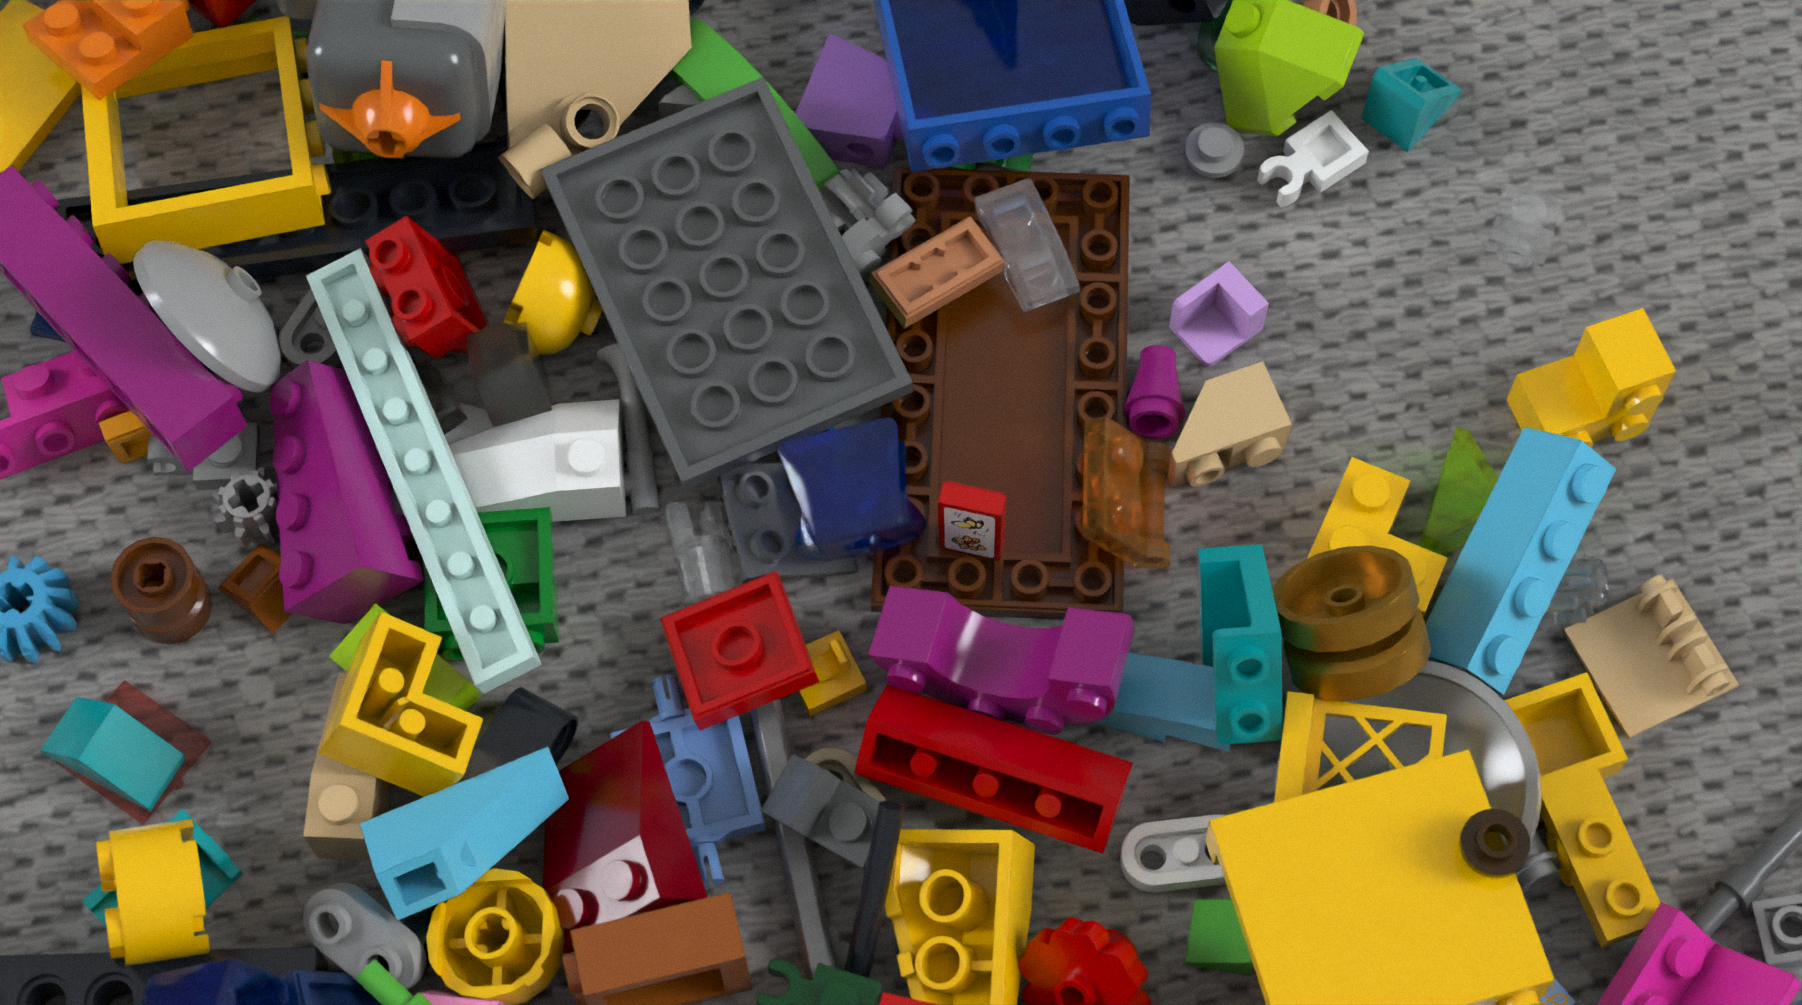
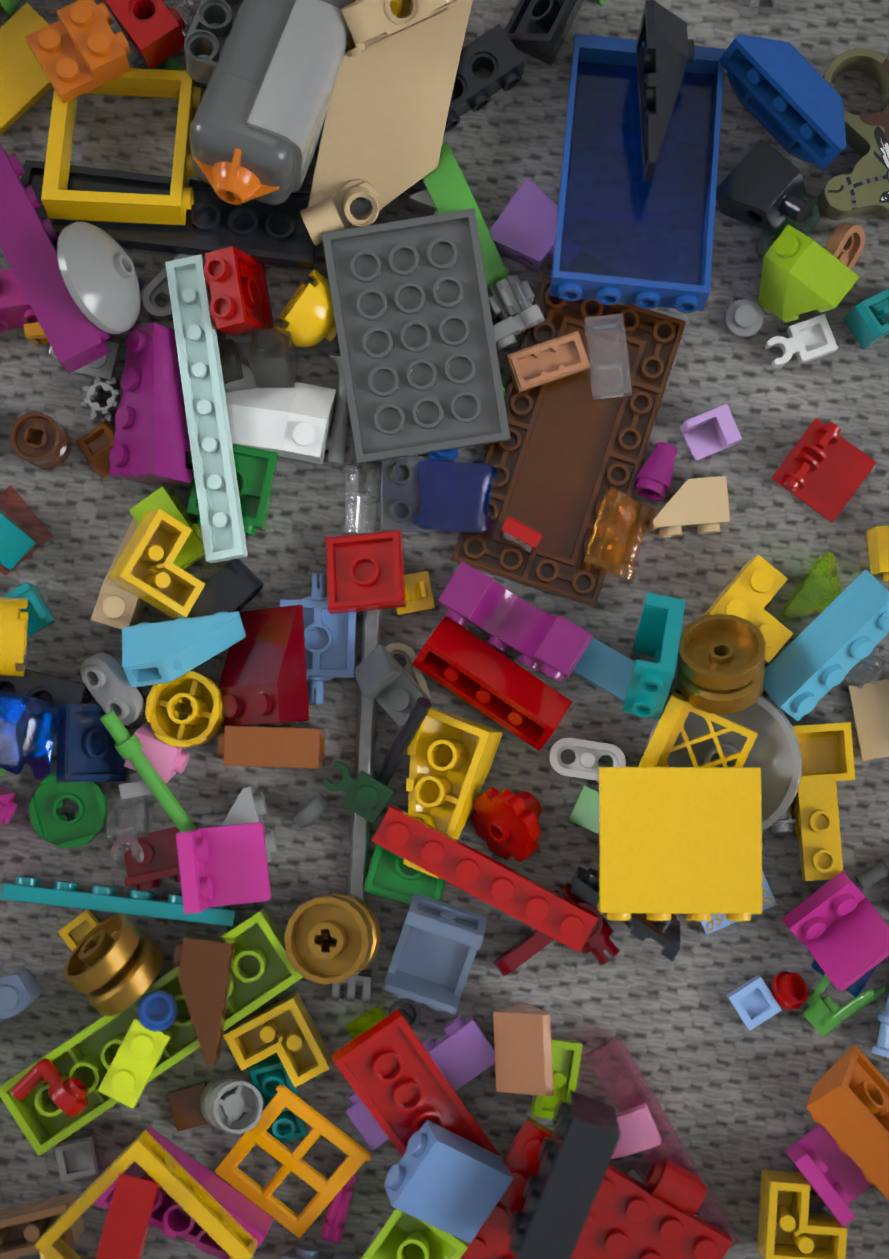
camera: 15 degrees right, 20 degrees up
(1409, 326) = (824, 469): none -> red hinge
(1488, 861) = (742, 830): dark brown plate -> none

